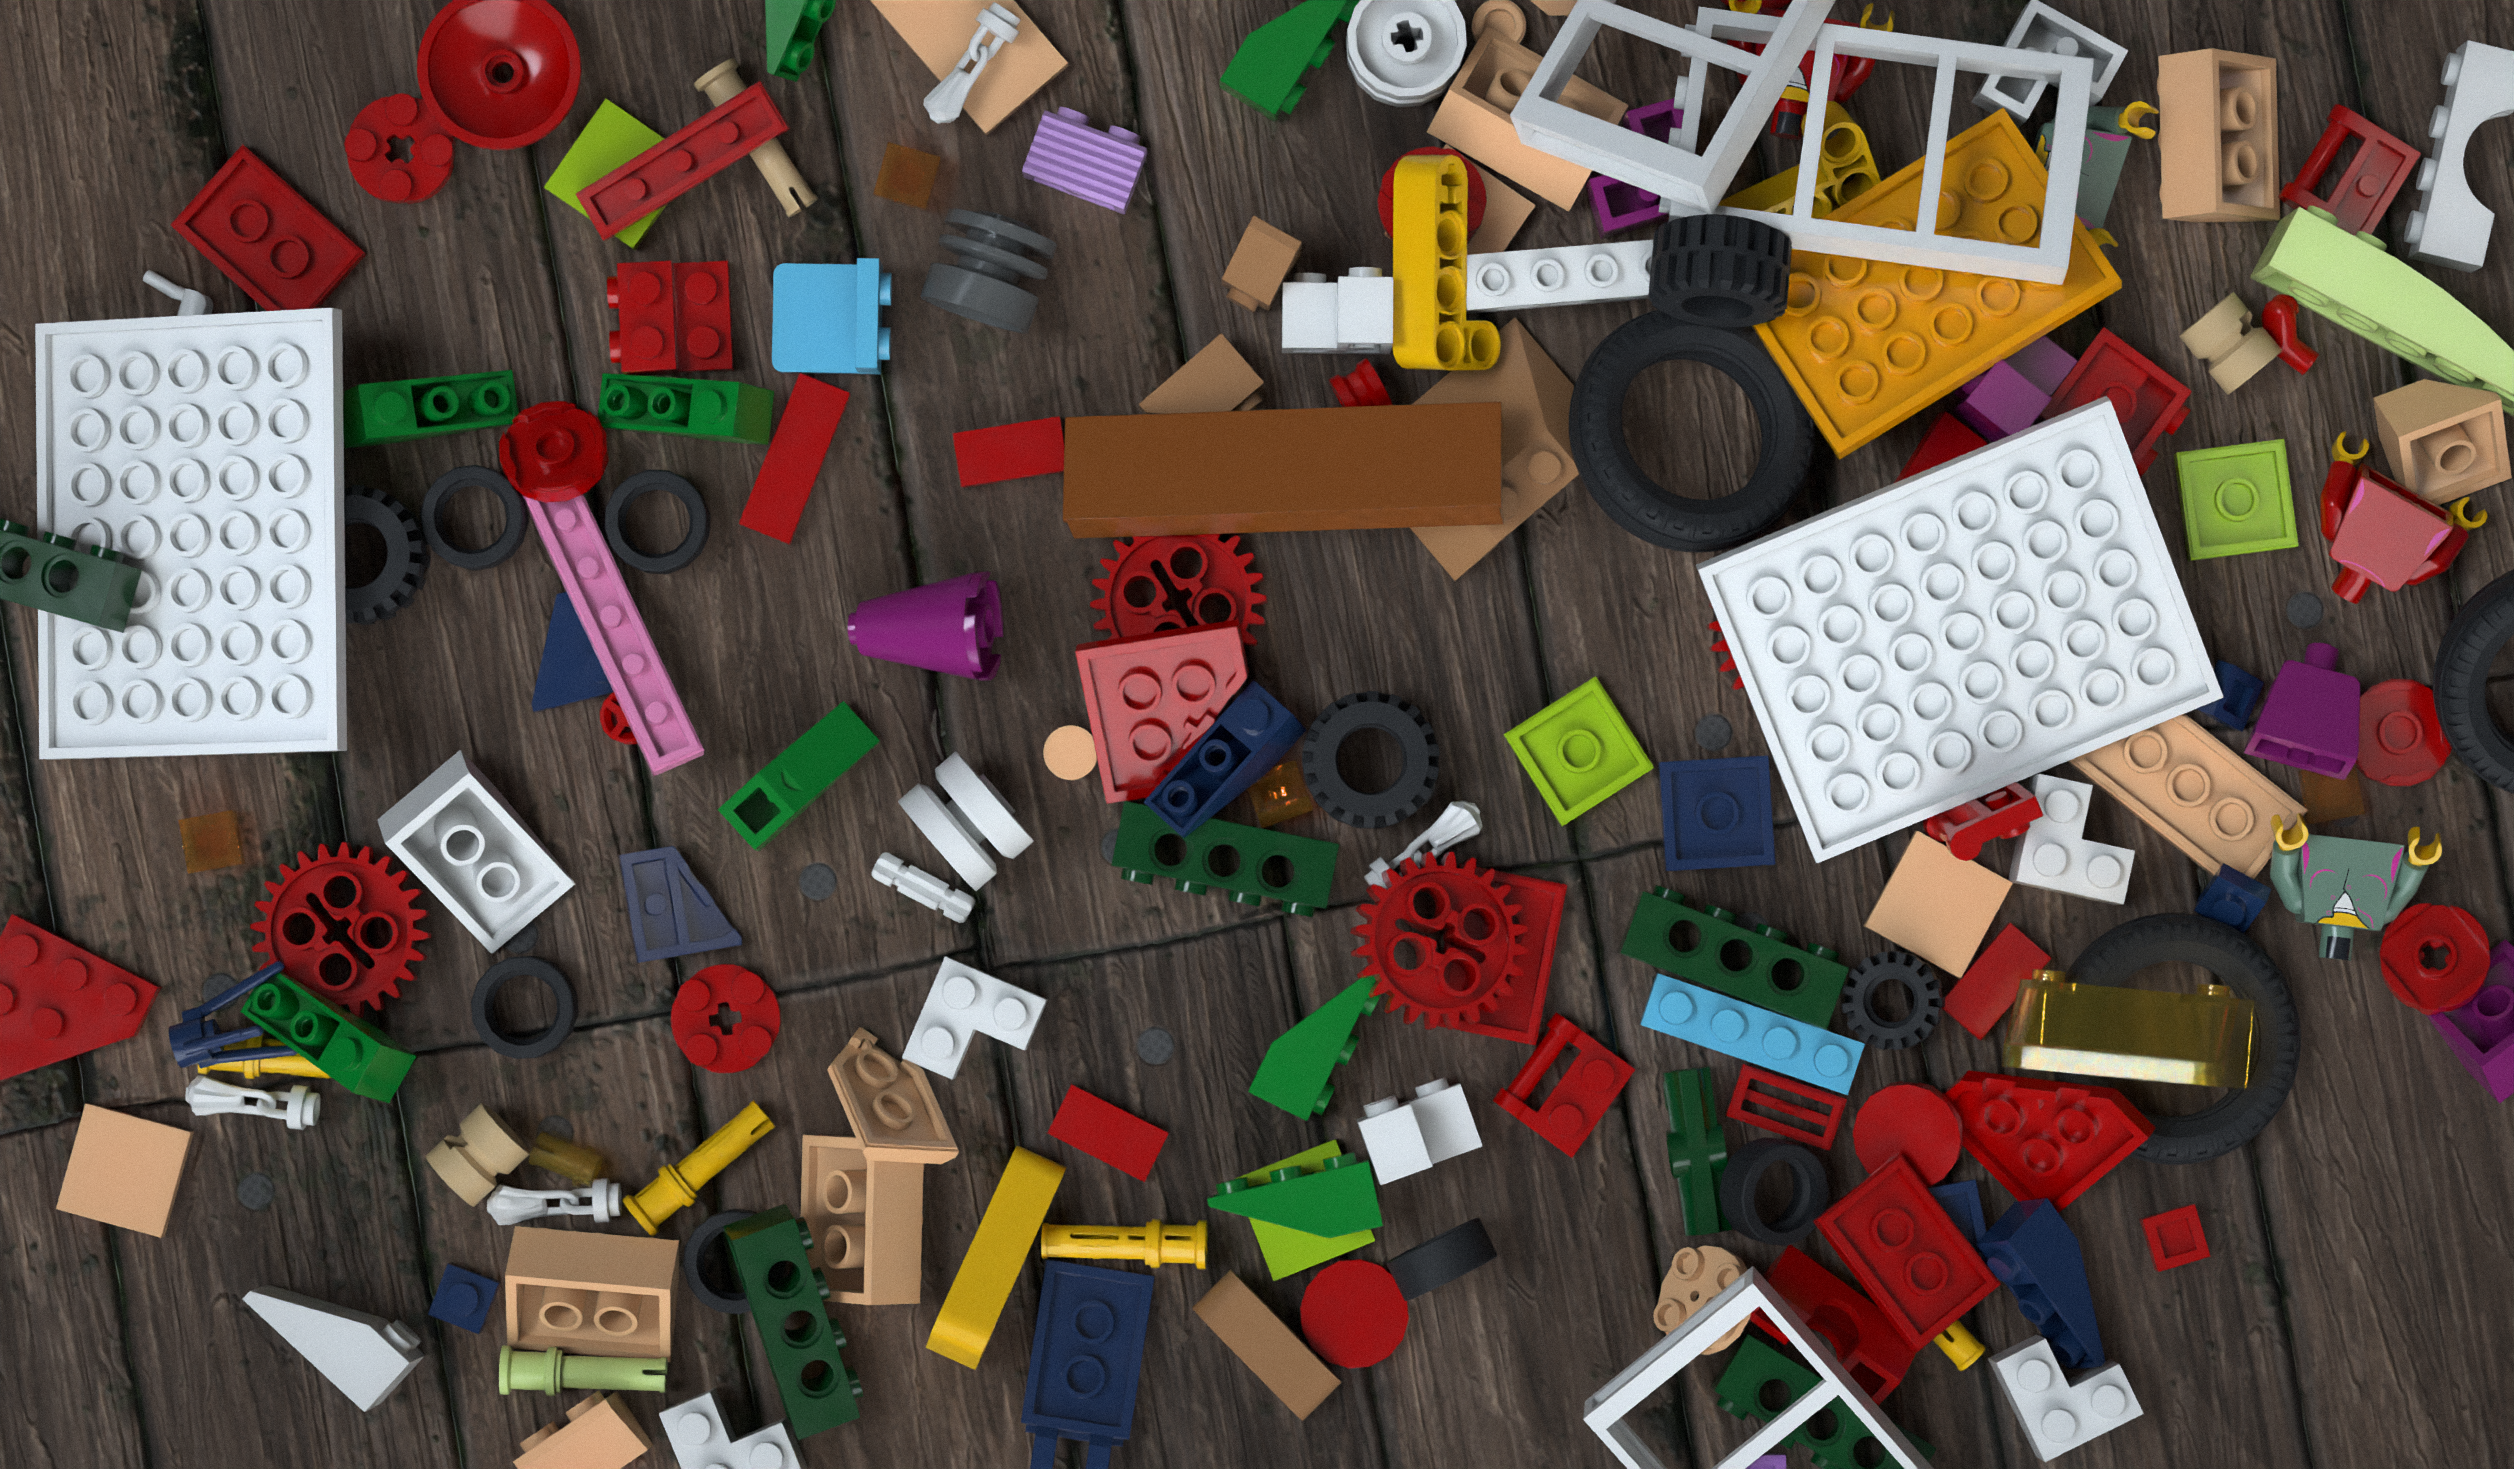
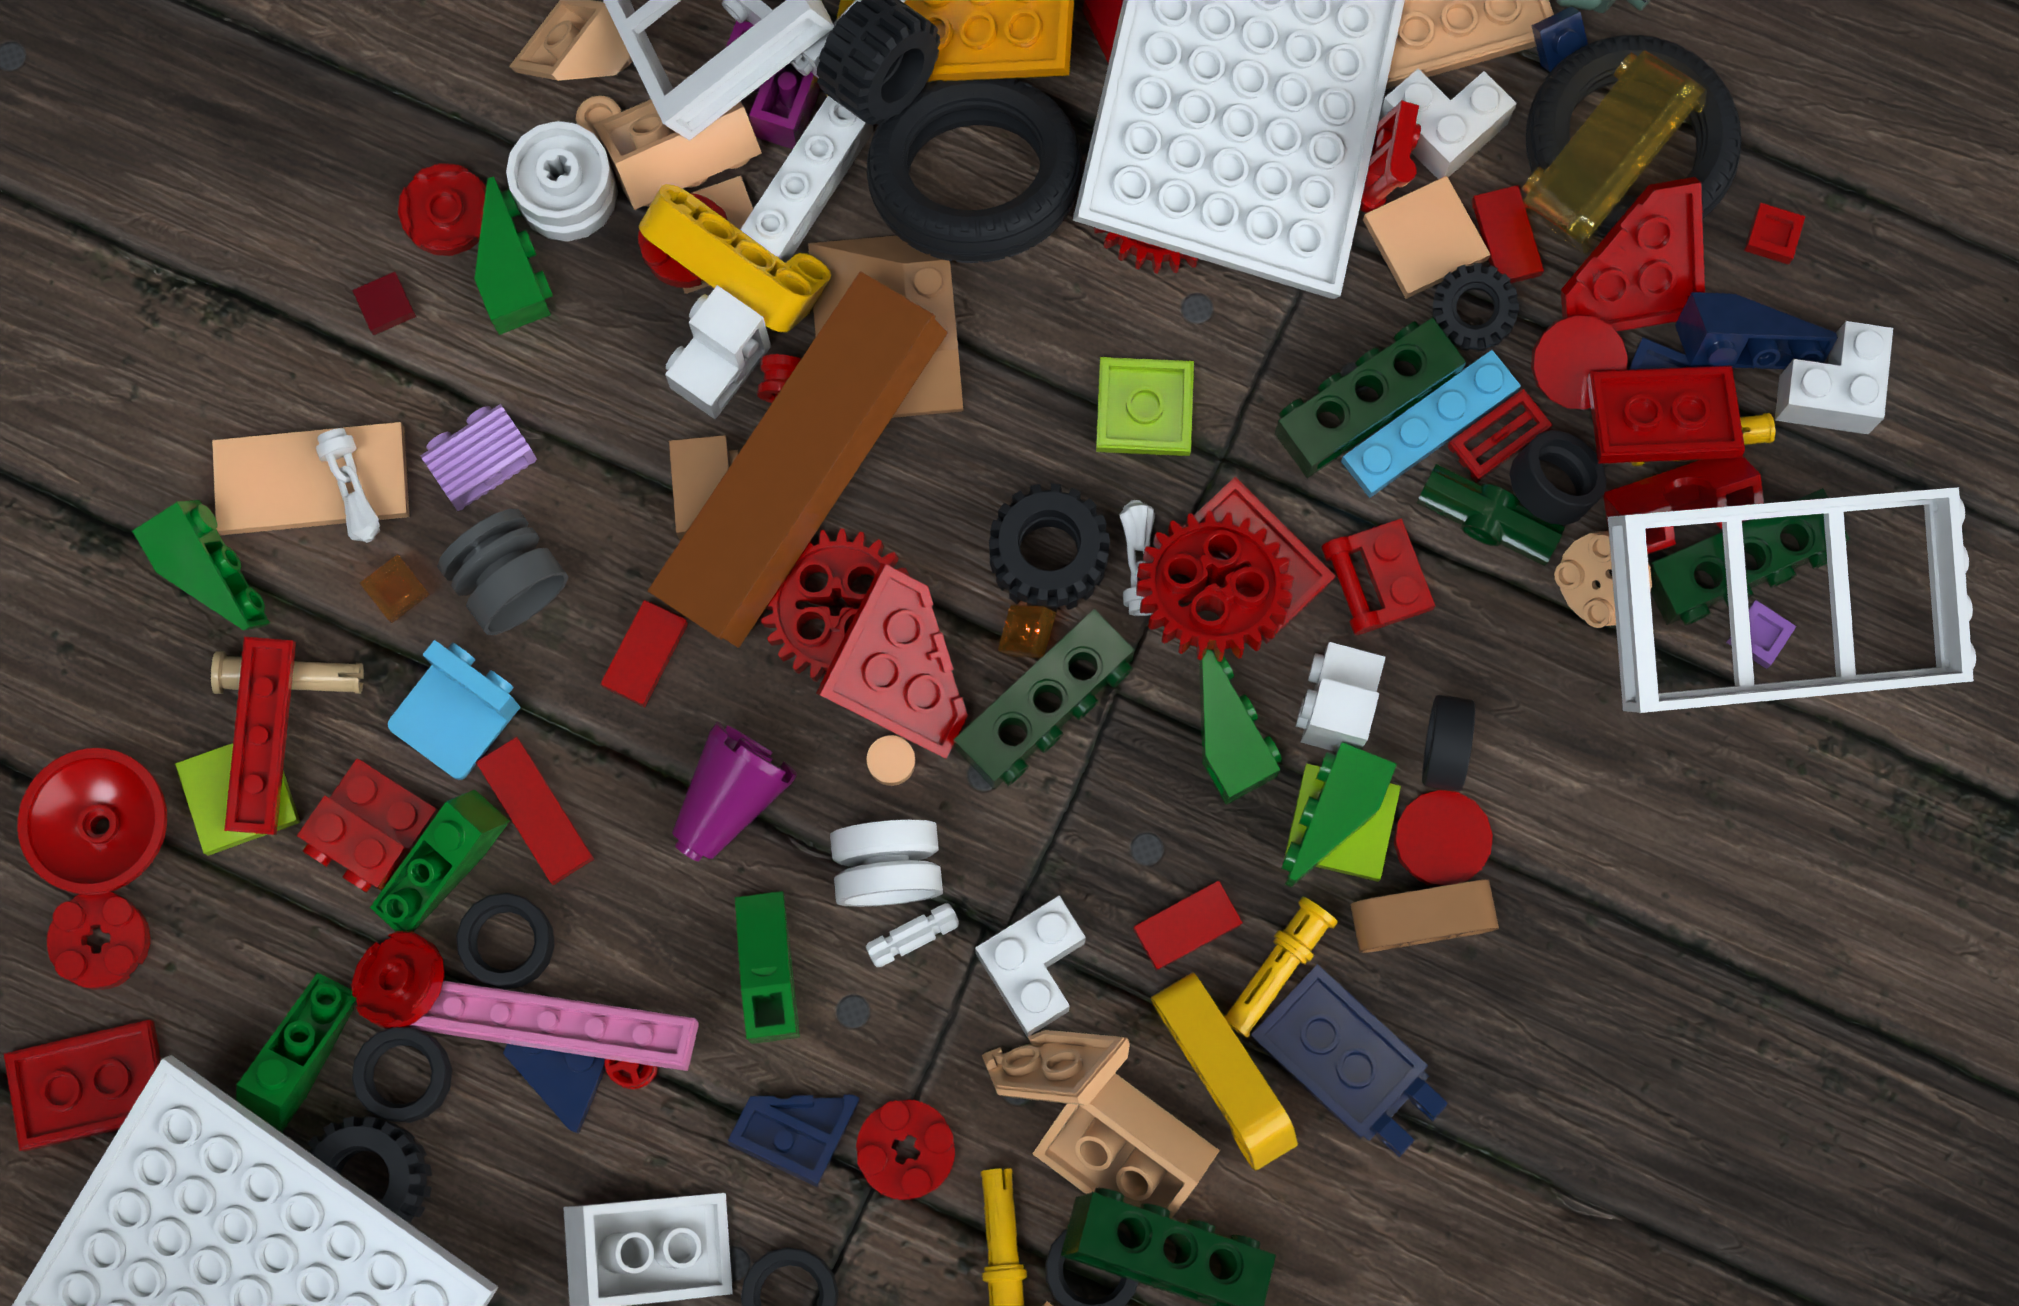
camera: 50 degrees left, 10 degrees down
(191, 301) = (80, 1176): white hand -> none
(1226, 760) = (975, 646): dark blue slope -> none
(1260, 265) = (641, 380): medium nougat slope -> none
(1716, 813) = (1256, 340): dark blue plate -> none

